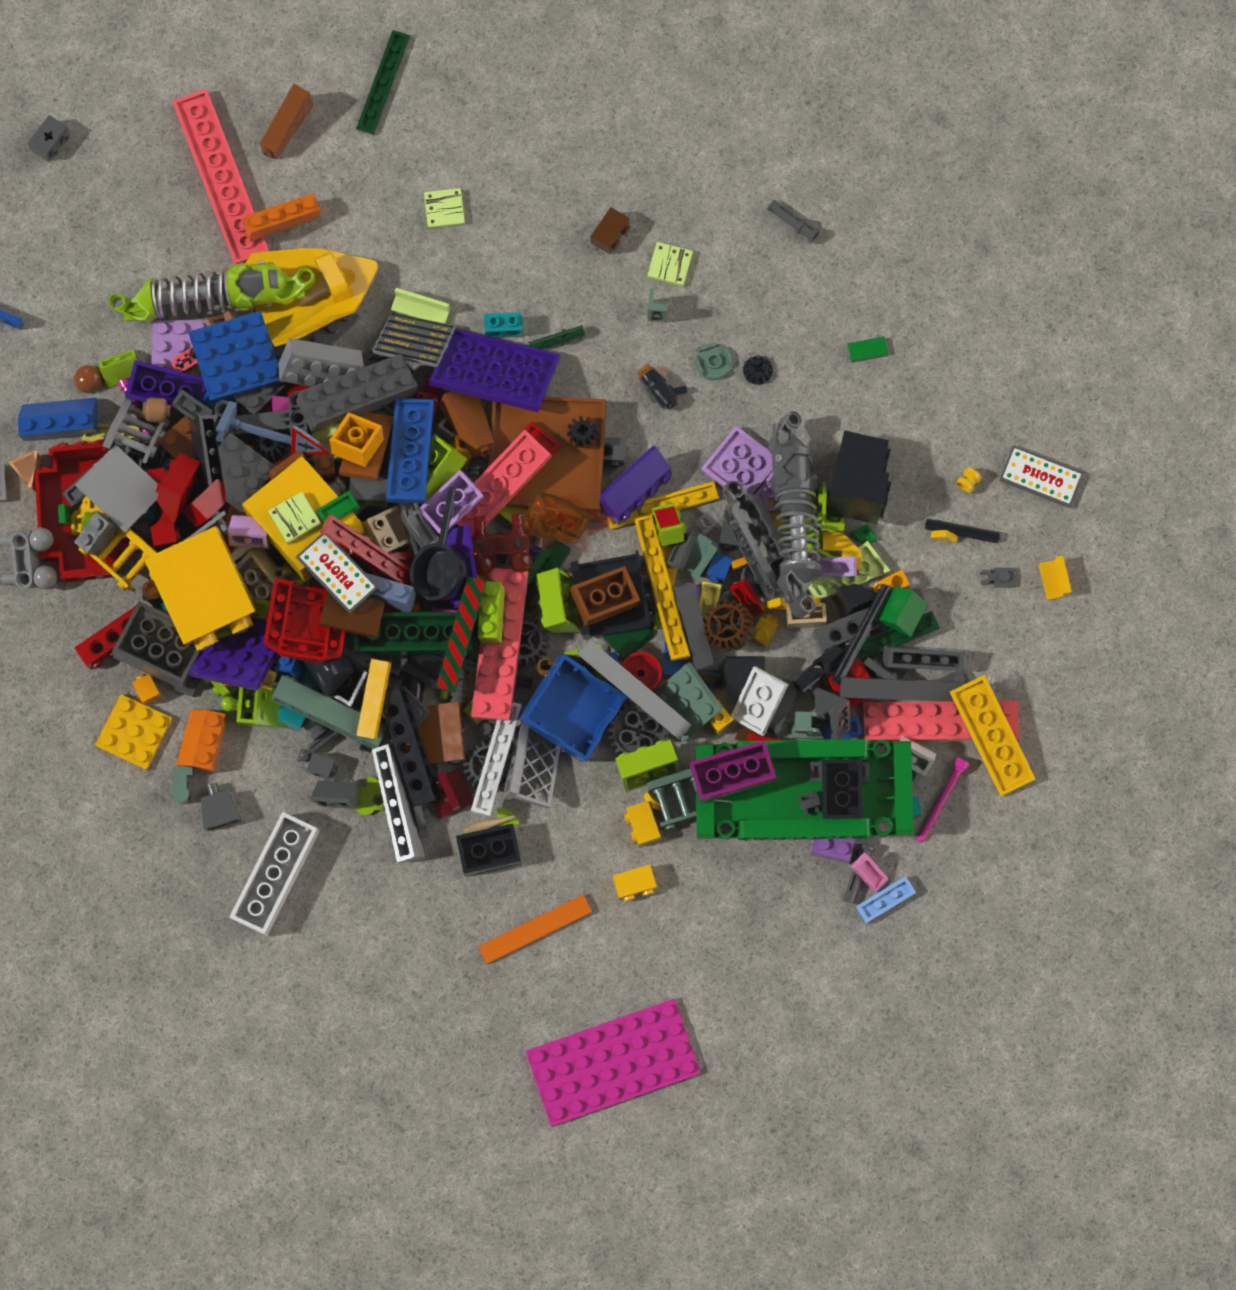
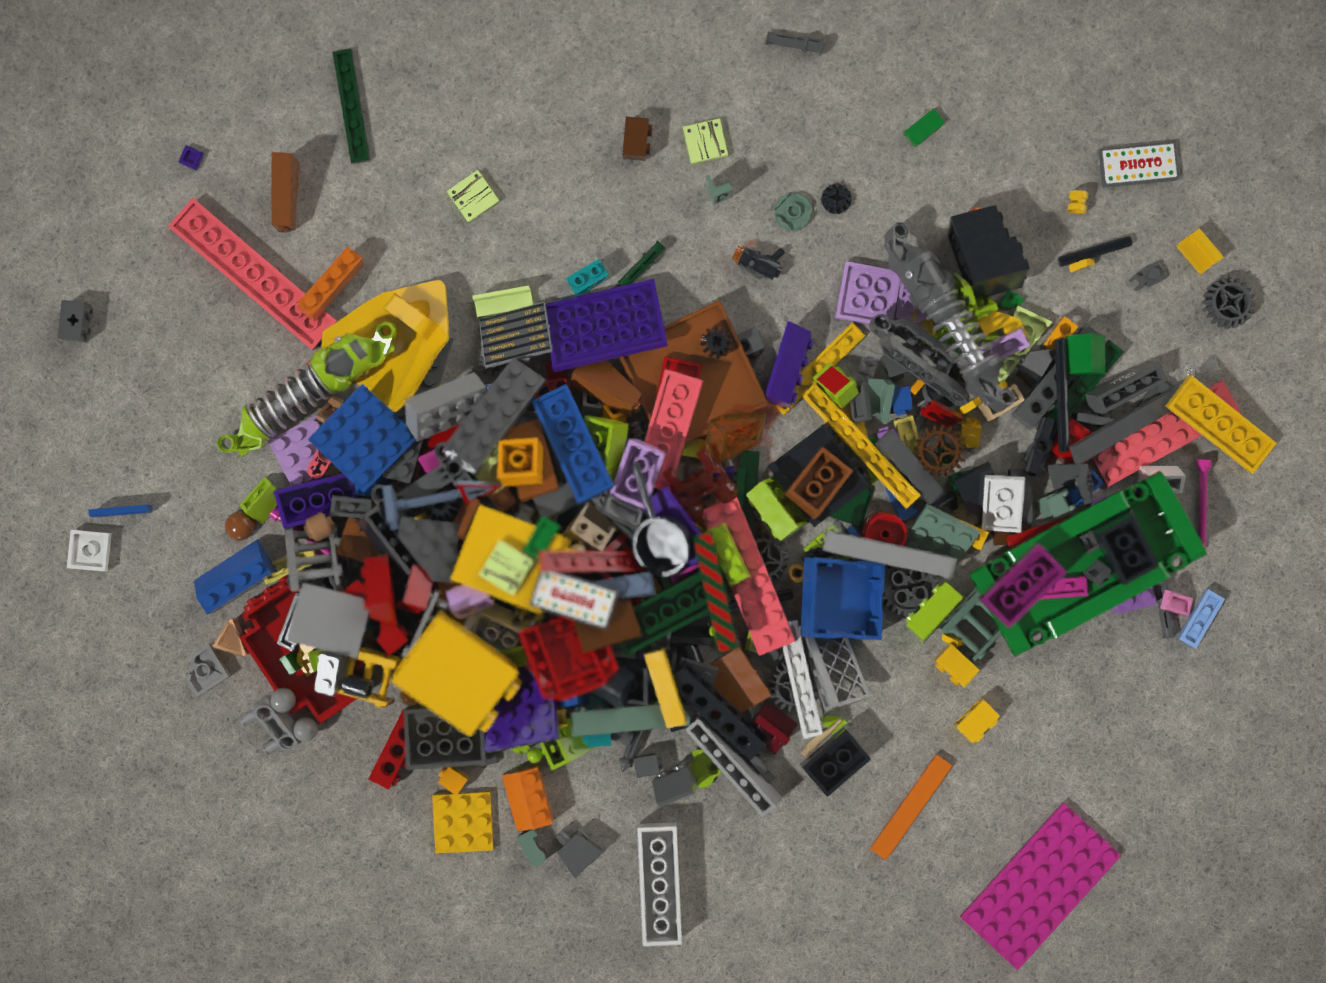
camera: 30 degrees left, 10 degrees up
(112, 558) = (357, 686): none -> black brick
(224, 56) = (191, 157): none -> dark purple tile
(770, 800) = (1068, 588): none -> dark pink tile
(1049, 636) = (1233, 309): none -> dark grey gear

